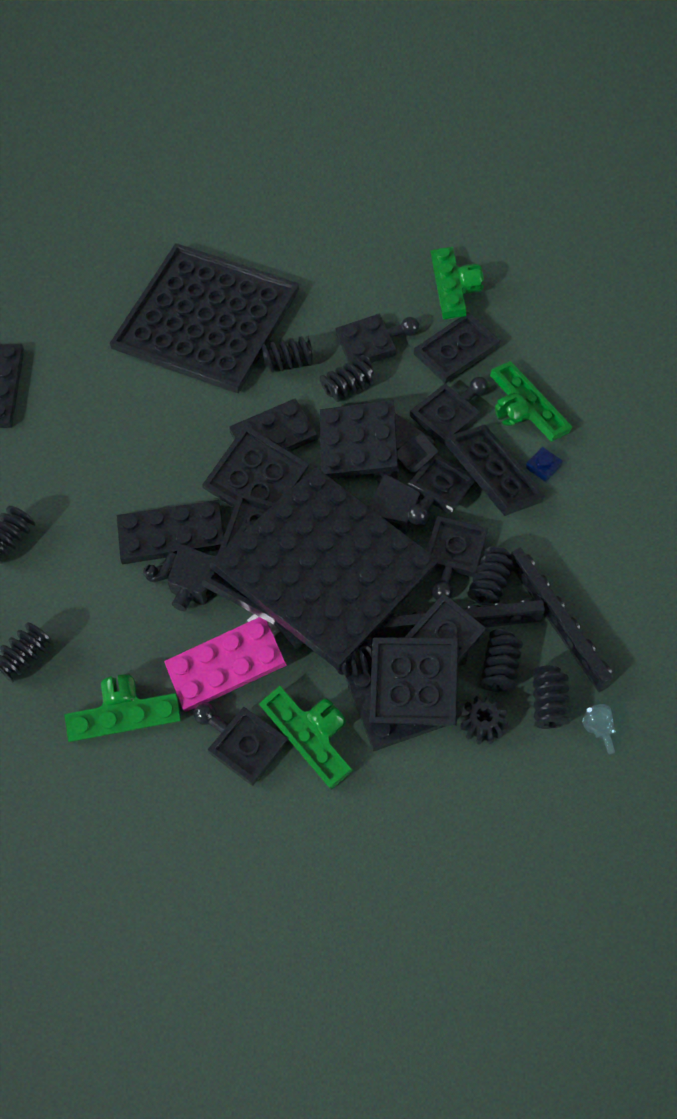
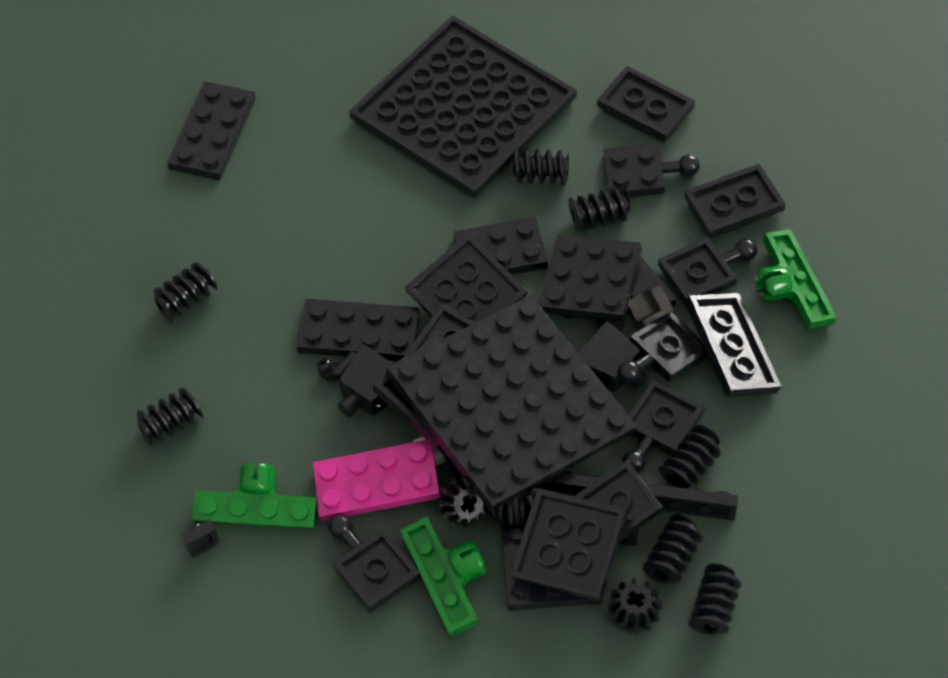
camera: 15 degrees right, 5 degrees down
(81, 756) = (201, 538): none -> black plate
(301, 671) = (454, 503): none -> black gear
(358, 282) = (645, 103): none -> black plate
(454, 282) = (754, 126): green plate -> none
(544, 464) = (792, 352): clear blue plate -> none
(565, 626) = (758, 532): black plate -> none
(600, 721) = (763, 641): clear light blue piece -> none

